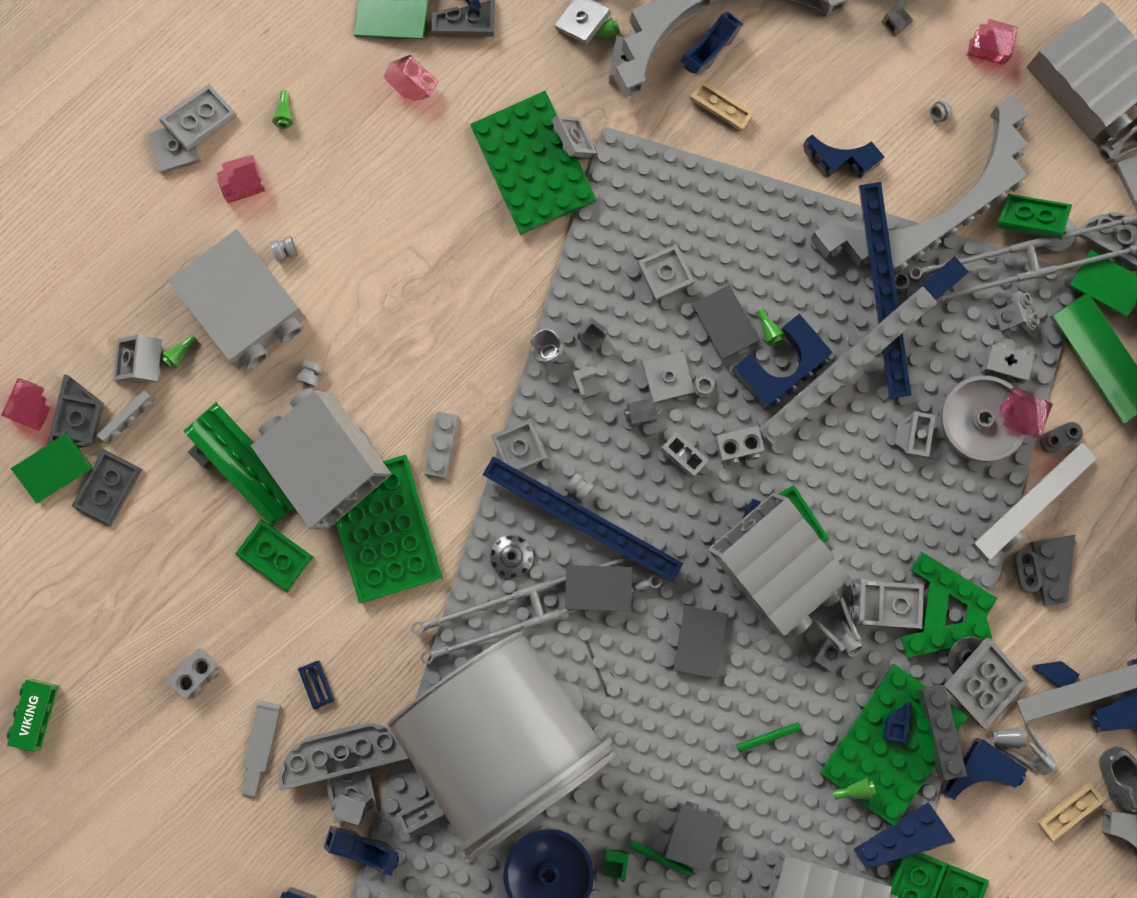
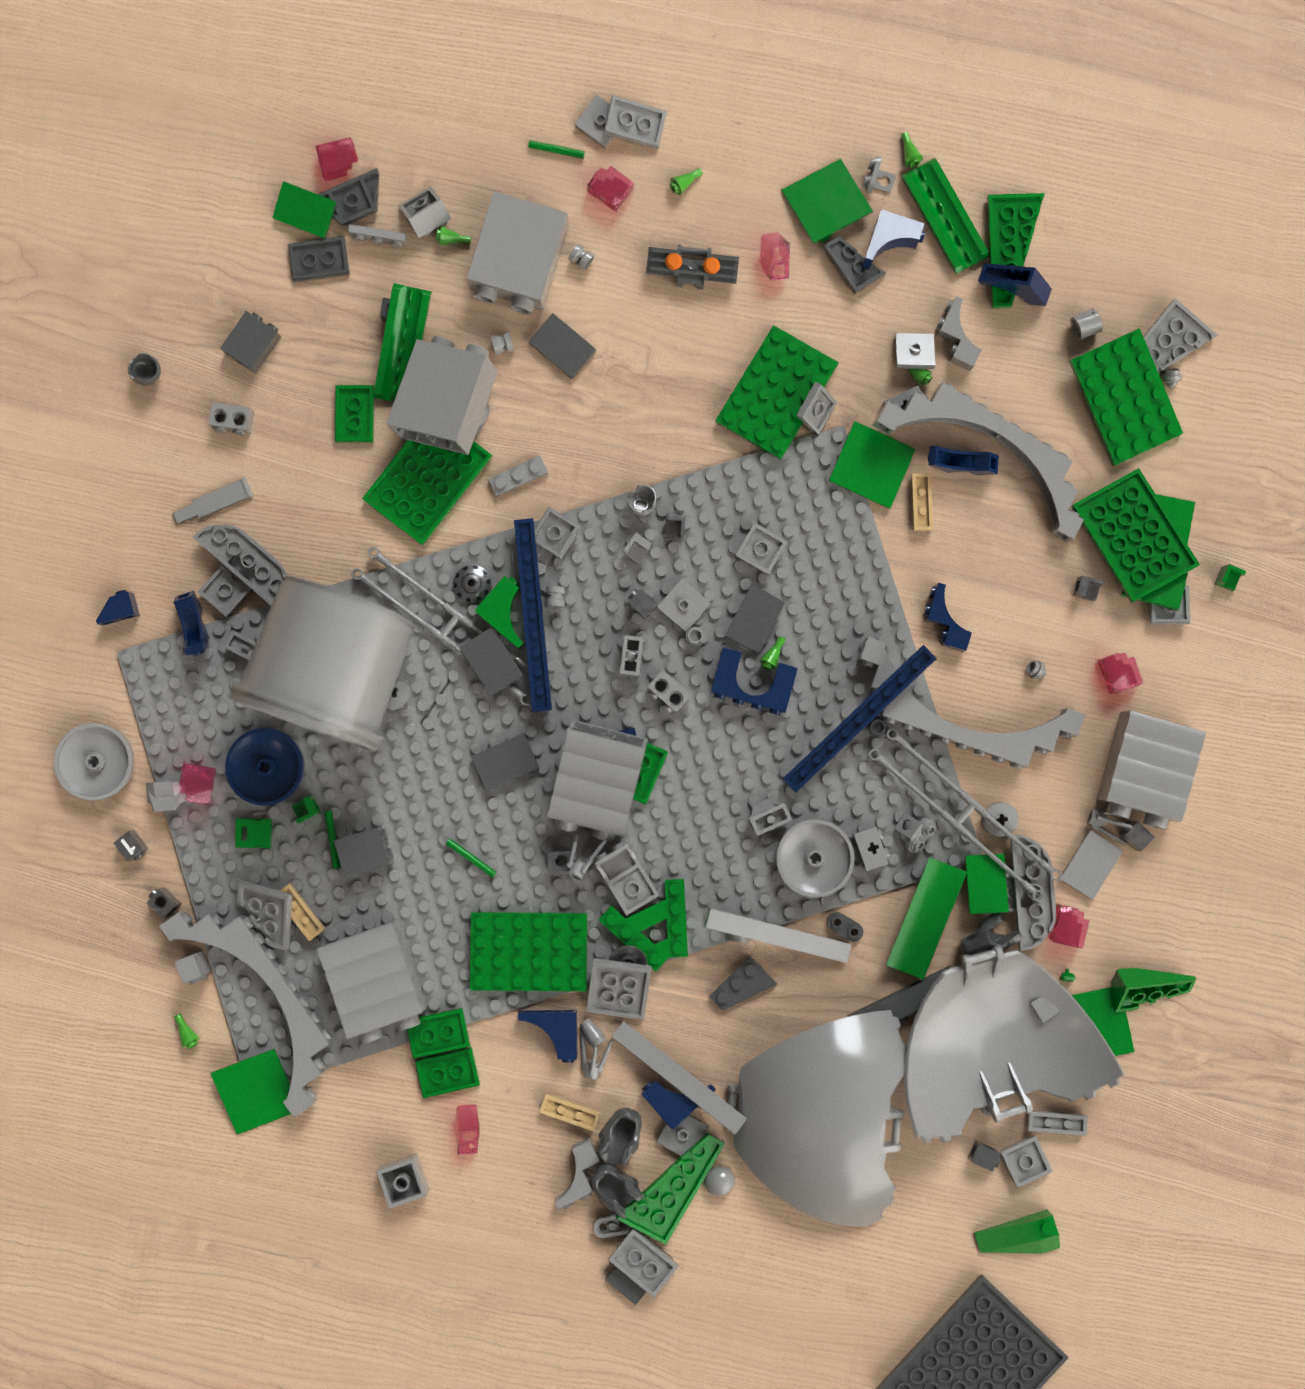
camera: 55 degrees right, 5 degrees up
(32, 715) = (124, 326): green brick -> none
(87, 724) = (144, 369): none -> dark grey hair
(136, 604) = (251, 341): none -> dark grey brick
(167, 205) = (556, 149): none -> green bar
(315, 705) = (290, 514): dark blue tile -> none
(351, 322) = (562, 346): none -> dark grey tile
(351, 807) = (215, 594): light grey brick -> none
(369, 160) = (691, 271): none -> dark grey piece
(553, 548) = (497, 609): none -> green arch
(657, 125) = (872, 465): none -> green piece
(847, 365) = (783, 730): light grey plate -> none
(860, 790) = (478, 948): bright green cone -> none
(897, 724) = (543, 943): dark blue tile -> none
(911, 835) = (469, 1005): dark blue wing -> none
(944, 278) = (892, 755): dark blue tile -> none
(947, 751) = (558, 977): dark grey arch -> none
(1024, 412) = (837, 883): clear pink piece -> none
(1028, 570) = (725, 966): dark grey plate -> none
(1034, 216) = (1000, 794): green tile -> none
(1057, 673) = (665, 1037): dark blue tile -> none

